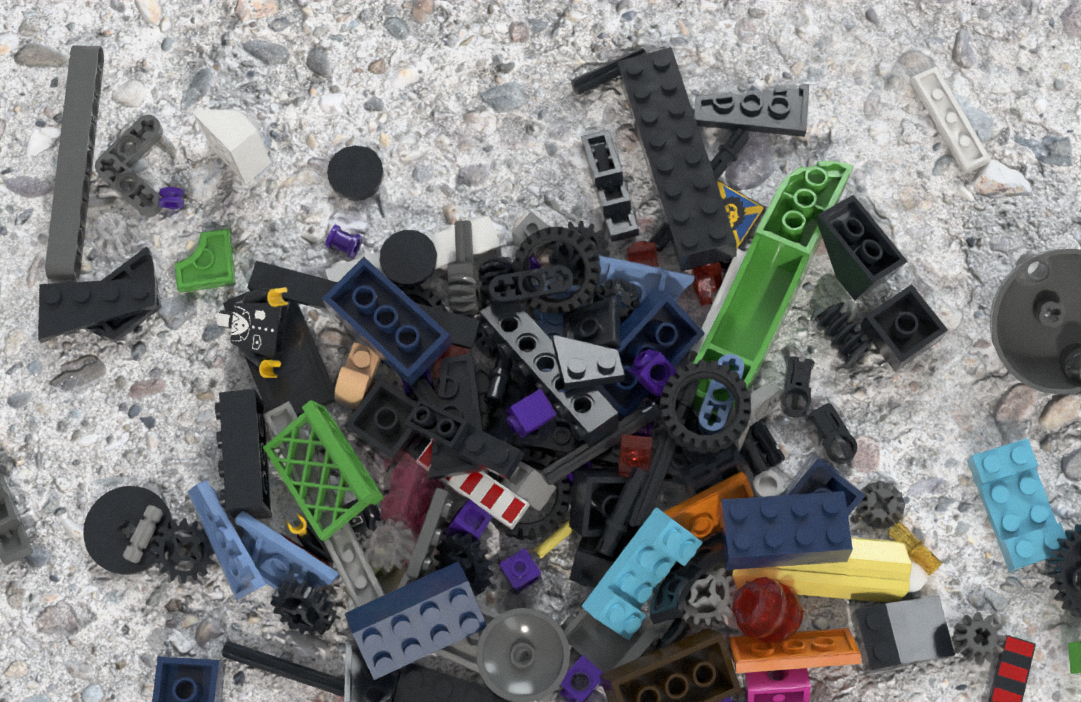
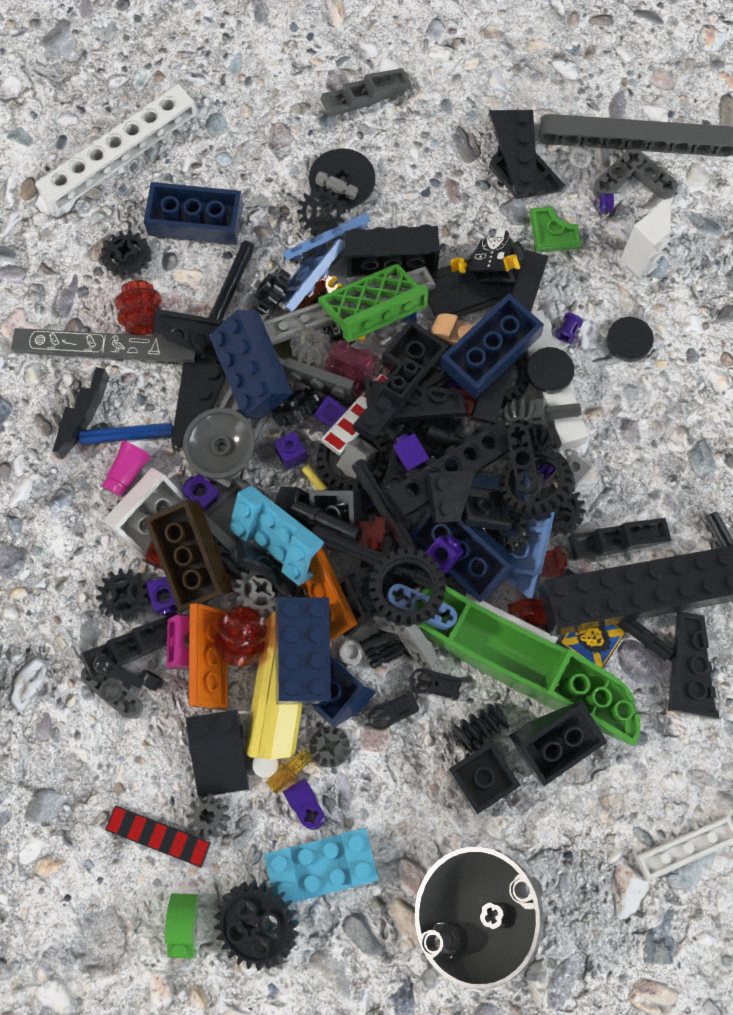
camera: 90 degrees right, 0 degrees up
(949, 528) = (303, 800): none -> dark purple piece

